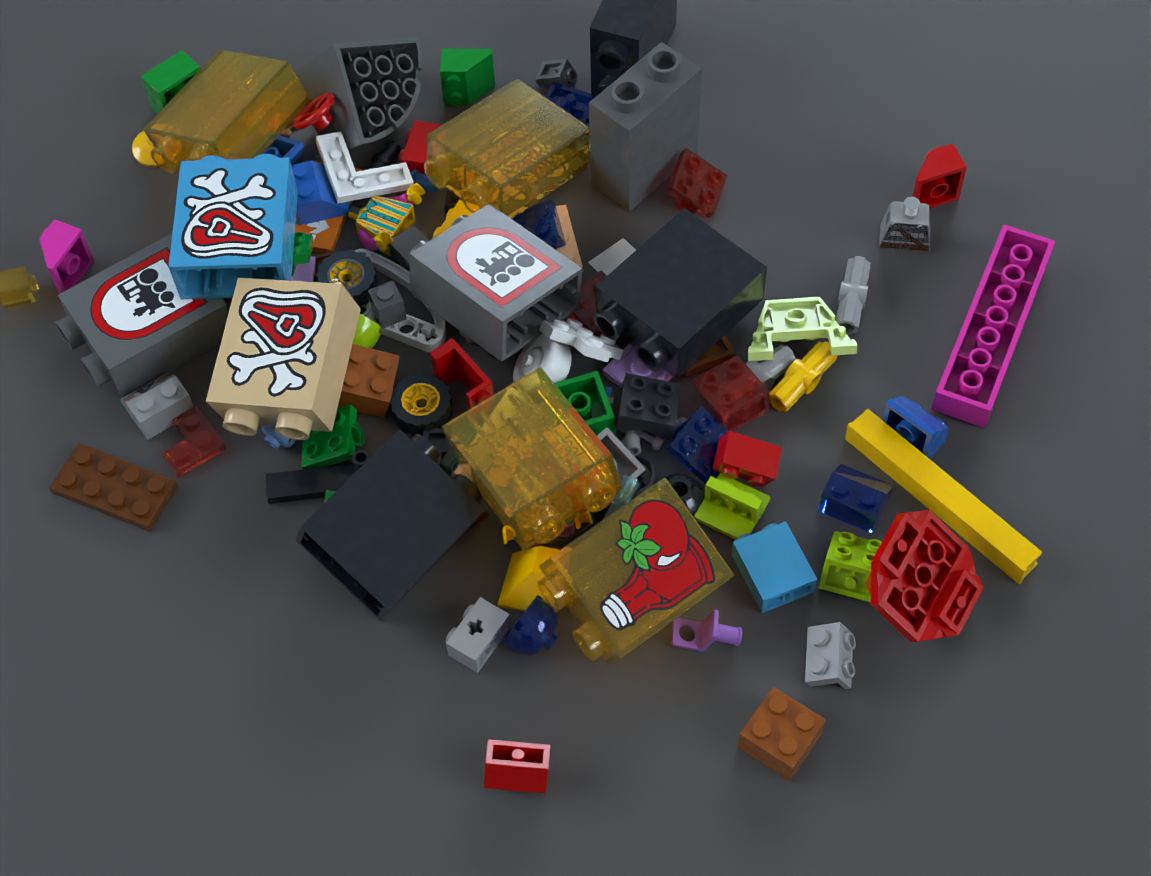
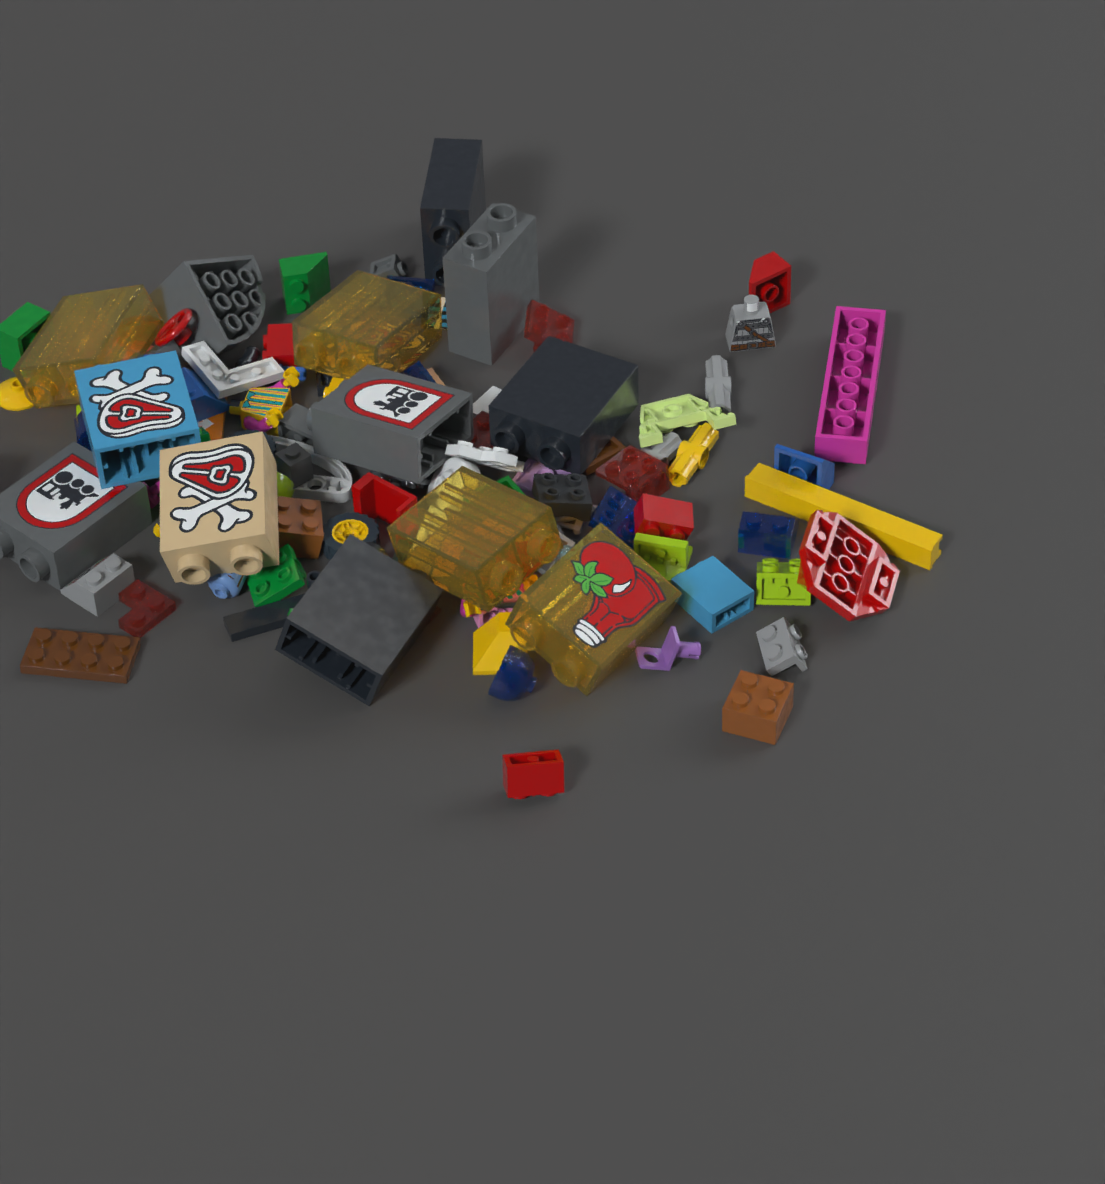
camera: 15 degrees left, 15 degrees down
(477, 648) = (463, 692): light grey brick -> none

